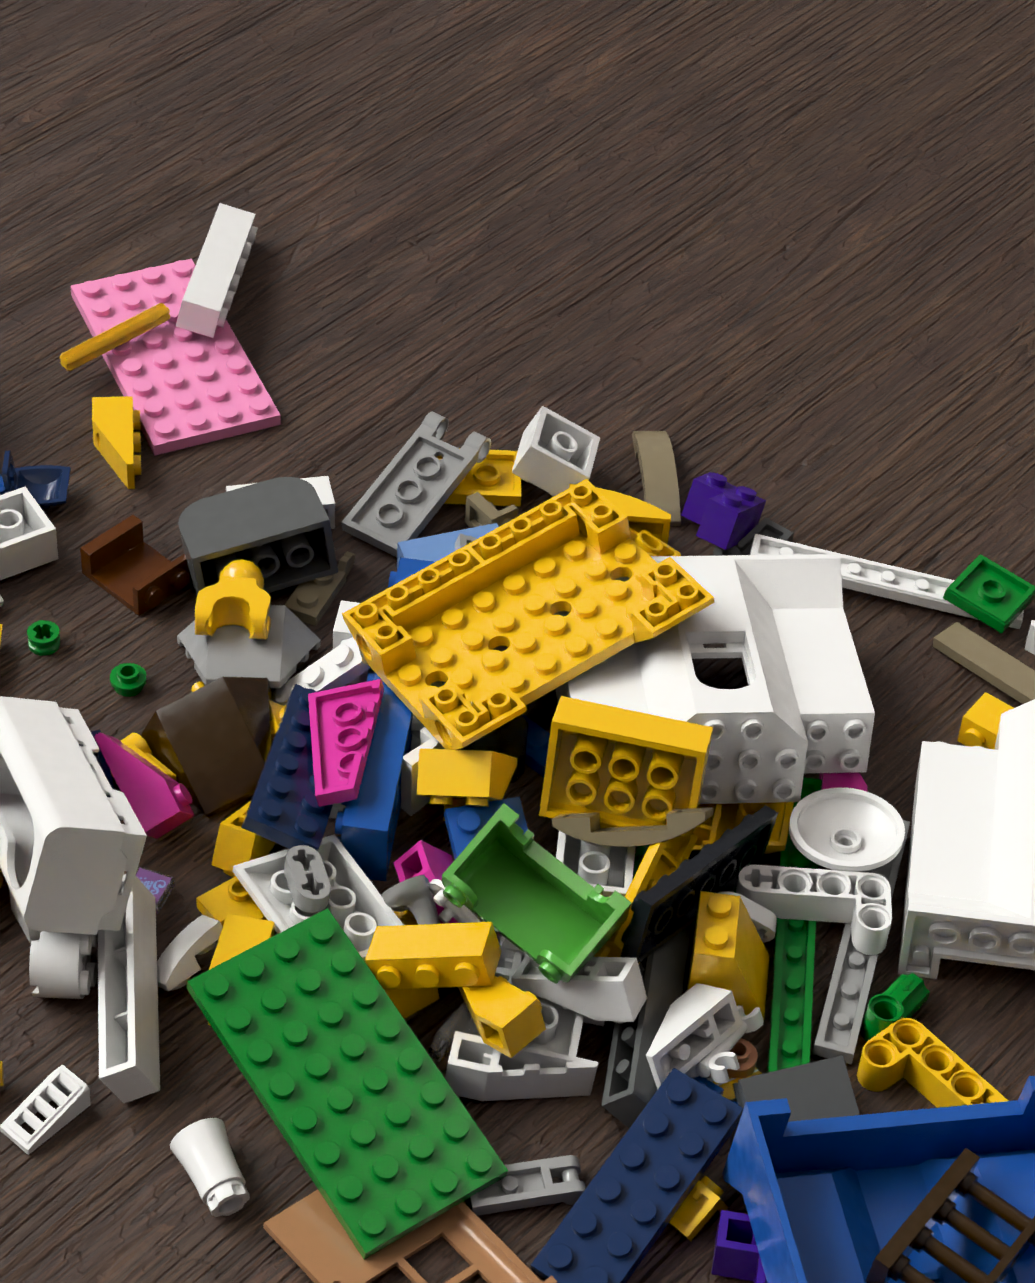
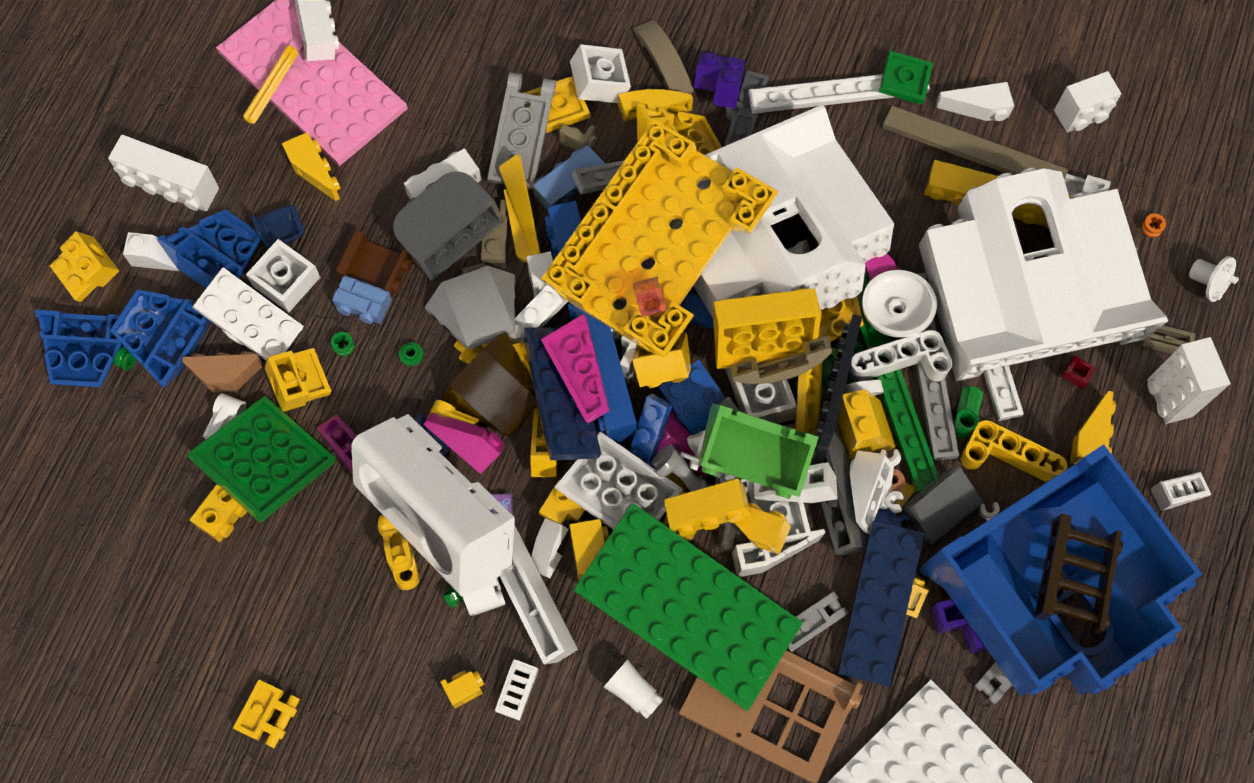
camera: 20 degrees left, 25 degrees up
(17, 967) = (451, 596): none -> green hinge
(97, 596) = (361, 300): none -> medium blue brick
(235, 601) = (460, 281): yellow piece -> none
(315, 878) = (599, 481): light grey beam -> none
(371, 553) = (519, 208): none -> yellow wedge
(409, 847) = (650, 428): none -> blue plate
(475, 666) = (649, 296): none -> brick
(963, 1004) = (1003, 393): none -> white tile

